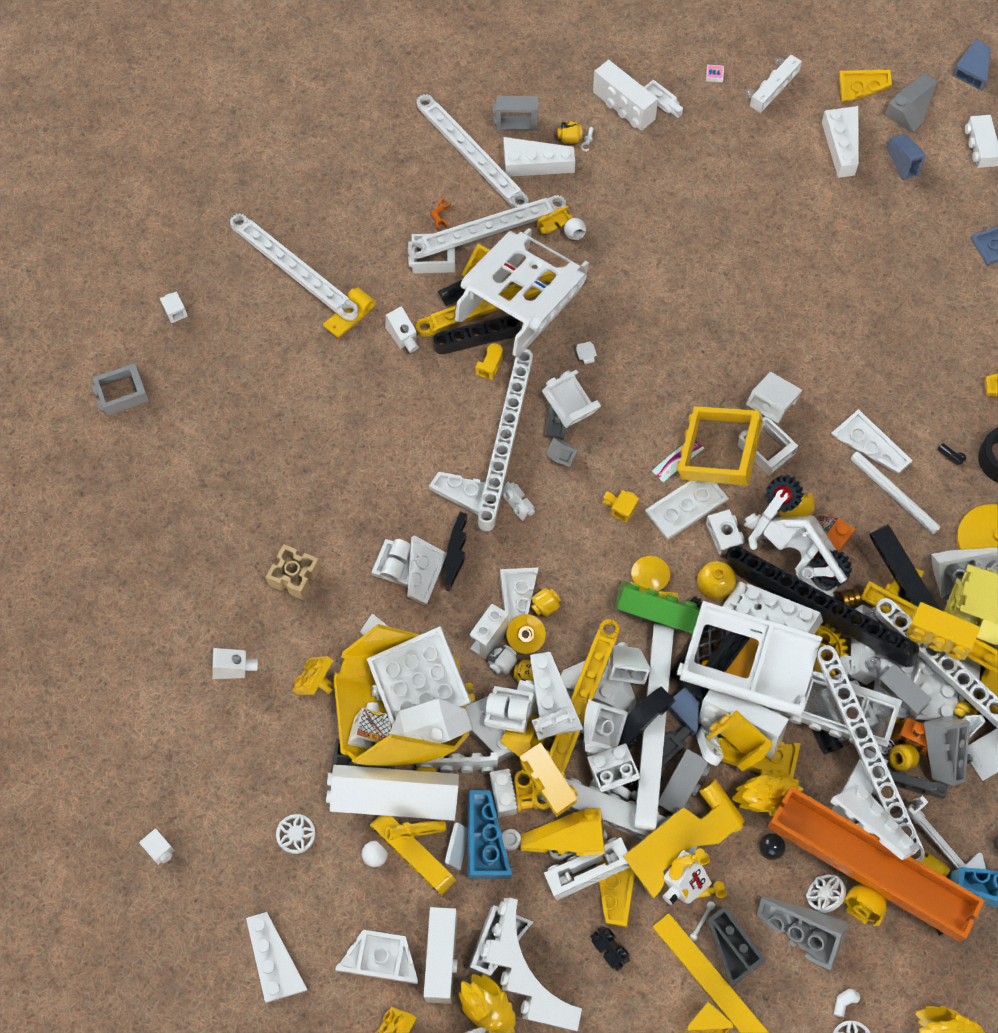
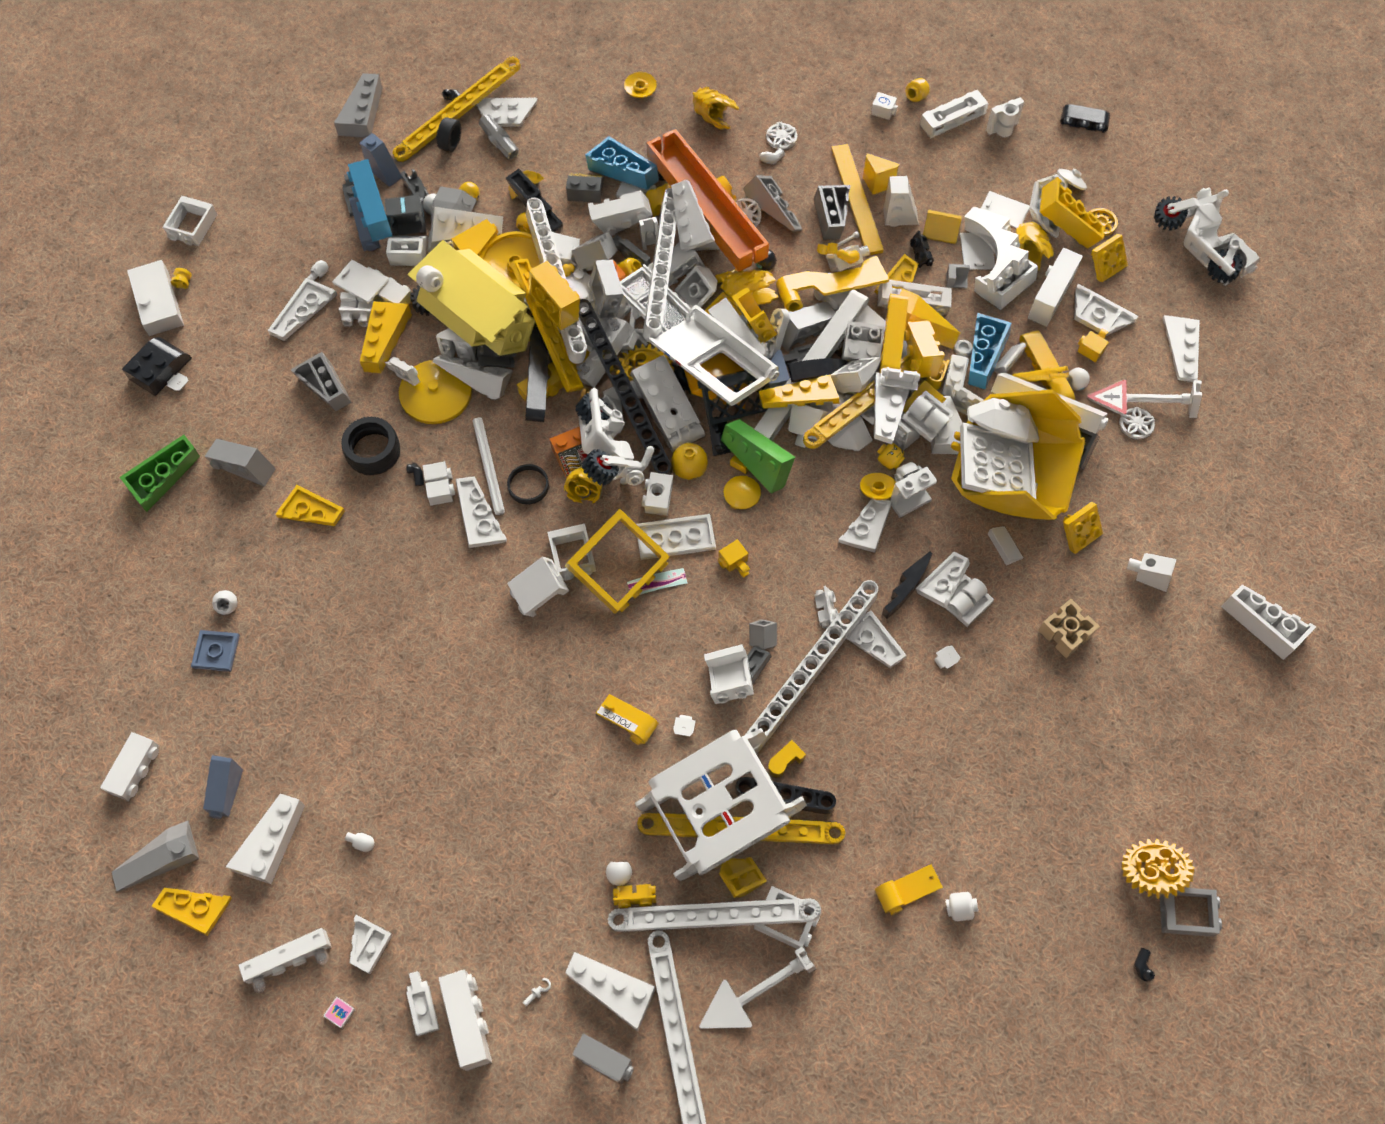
camera: 155 degrees left, 0 degrees up
(107, 663) = (1267, 621): none -> white wedge
(147, 338) = (1141, 965): none -> black arm
(147, 388) = (1157, 868): none -> yellow gear
(157, 847) = (1258, 456): white brick -> none
(173, 307) = (1103, 991): white brick -> none
(294, 267) = (950, 982): white plate -> none
(302, 317) = (961, 906): none -> white head
(328, 852) = (1116, 398): none -> white piece
(369, 727) = (1052, 450): white torso -> none
(372, 905) = (1093, 345): none -> yellow brick
(393, 322) = (863, 833): white torso -> none
(393, 500) = (947, 657): none -> white piece
(435, 213) = (758, 976): orange arm -> none
(444, 183) = (728, 1010): none -> white piece
(451, 293) = (780, 862): black hinge -> none
(545, 602) = (848, 505): yellow head -> none
(553, 977) = (976, 252): none -> white container
(555, 928) = (957, 276): none -> light grey panel
(570, 132) = (553, 1006): yellow head -> none
(585, 780) = (894, 331): none -> yellow beam
(603, 998) = (942, 226): none -> yellow slope
(624, 333) = (636, 722): none -> yellow door
(640, 681) = (806, 391): none -> yellow wing
(659, 985) = (899, 203): none -> white wedge
(725, 115) = (367, 944): none -> white wing
(778, 171) = (360, 841): none -> white cylinder
(819, 772) = (697, 286): none -> white slope
(856, 475) = (530, 500): none -> black tyre
(927, 457) = (438, 484): none -> white piece
(958, 814) = (620, 213): none -> white wedge
(974, 65) = (58, 867): sand blue slope -> none

